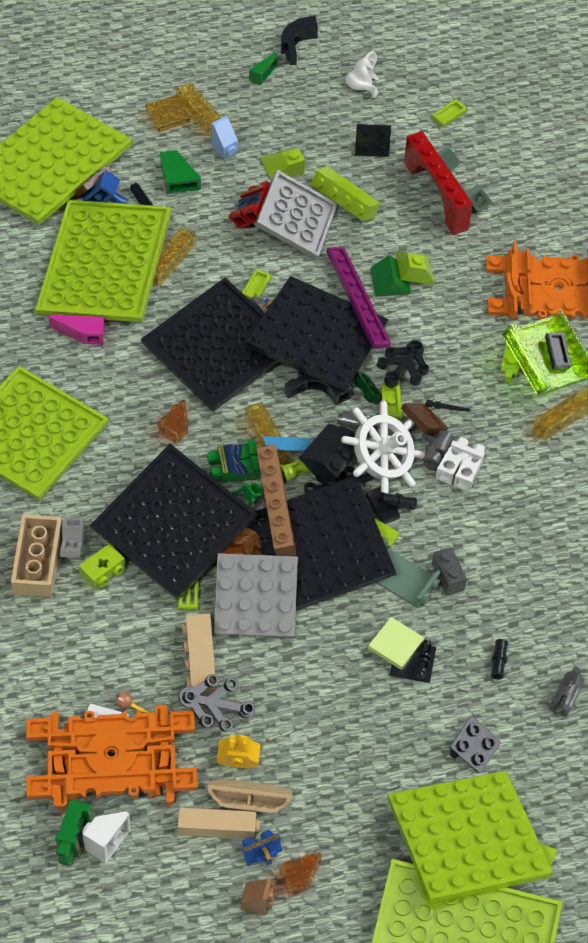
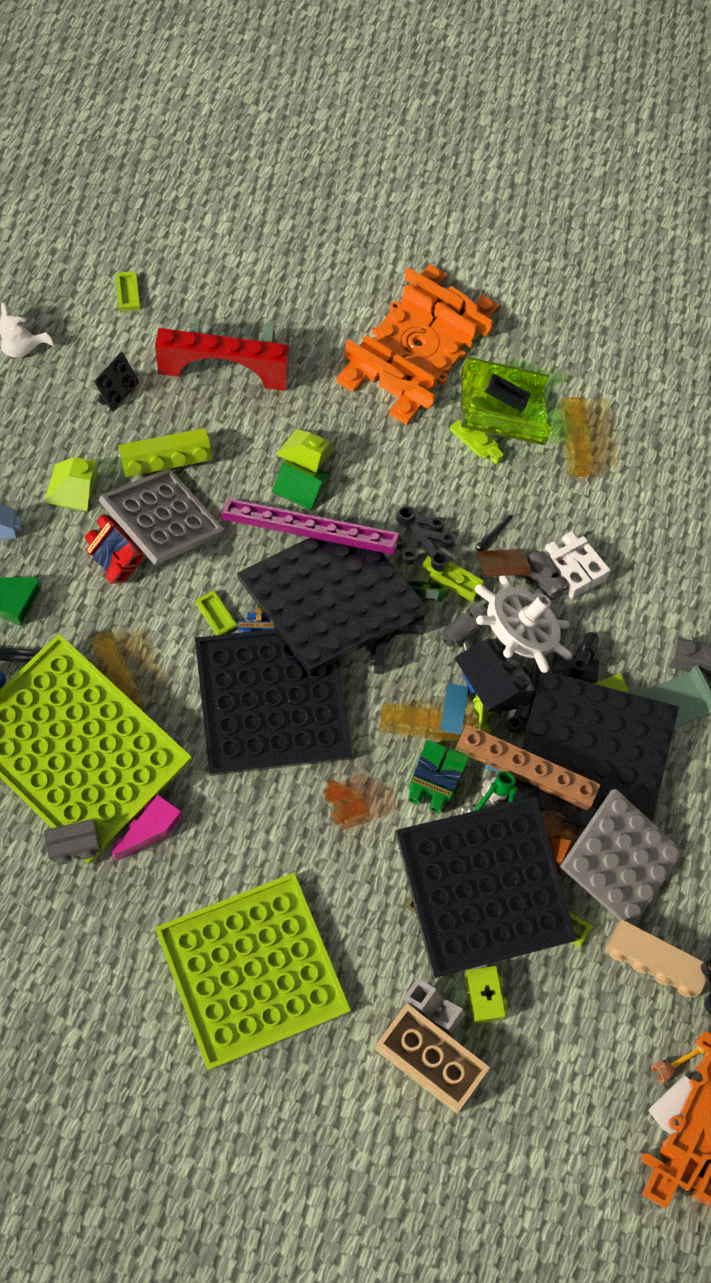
camera: 60 degrees left, 10 degrees up
(41, 291) = (73, 841): none -> dark grey brick

